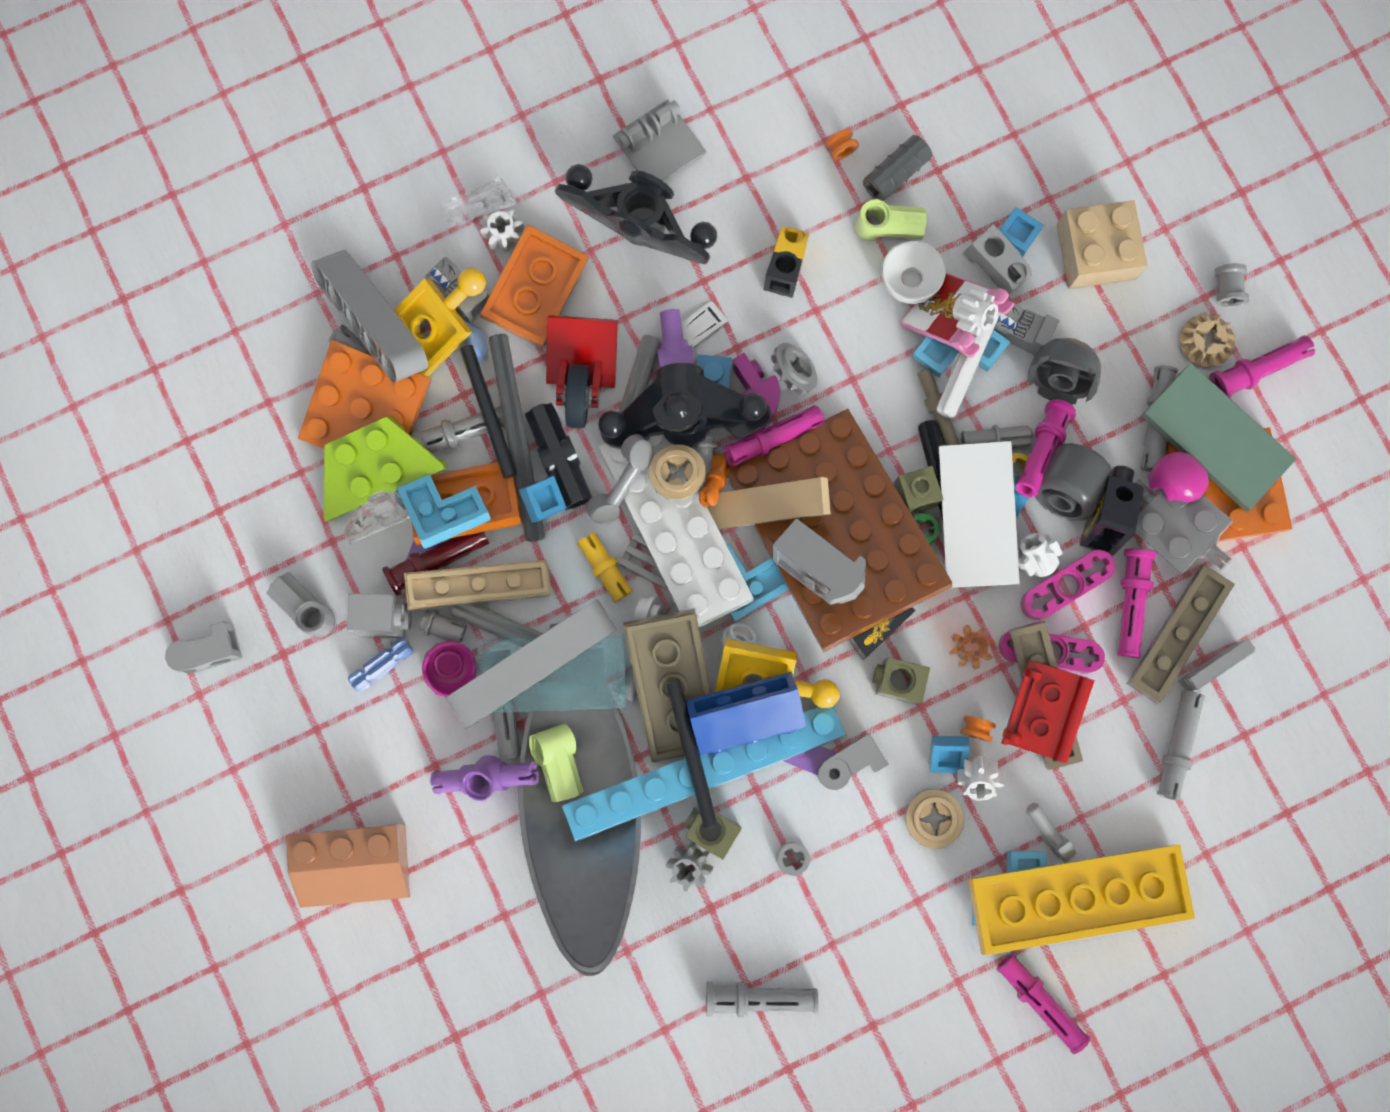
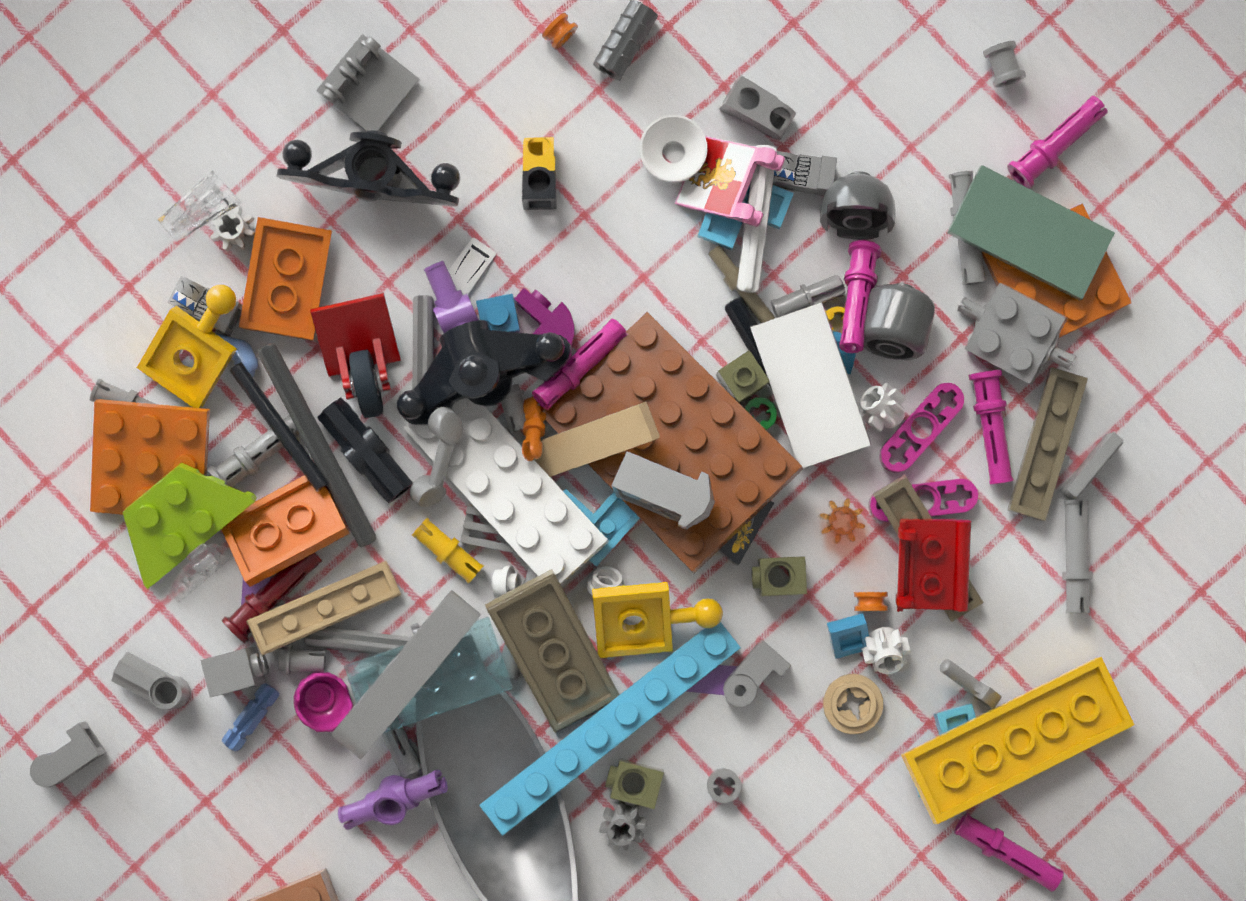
camera: 20 degrees left, 5 degrees up
(369, 316) = (125, 364): light grey beam -> none
(438, 518) = (267, 555): medium azure plate -> none
(542, 499) = (364, 501): dark azure plate -> none
(554, 753) = (455, 754): yellowish green piece -> none
(678, 457) = (488, 417): tan gear -> none
(692, 754) = (592, 715): black bar -> none
(746, 713) = (634, 658): brick -> none
(794, 368) = (586, 281): light grey gear -> none
(894, 221) = (639, 99): yellowish green piece -> none
(975, 311) = (747, 180): white gear -> none
(1021, 230) = (771, 70): dark azure plate -> none
(1101, 244) = (859, 61): tan brick -> none
(1116, 514) = (948, 341): black torso -> none
(1179, 476) = (1001, 288): dark pink hair -> none
(1193, 344) = (982, 138): tan gear -> none

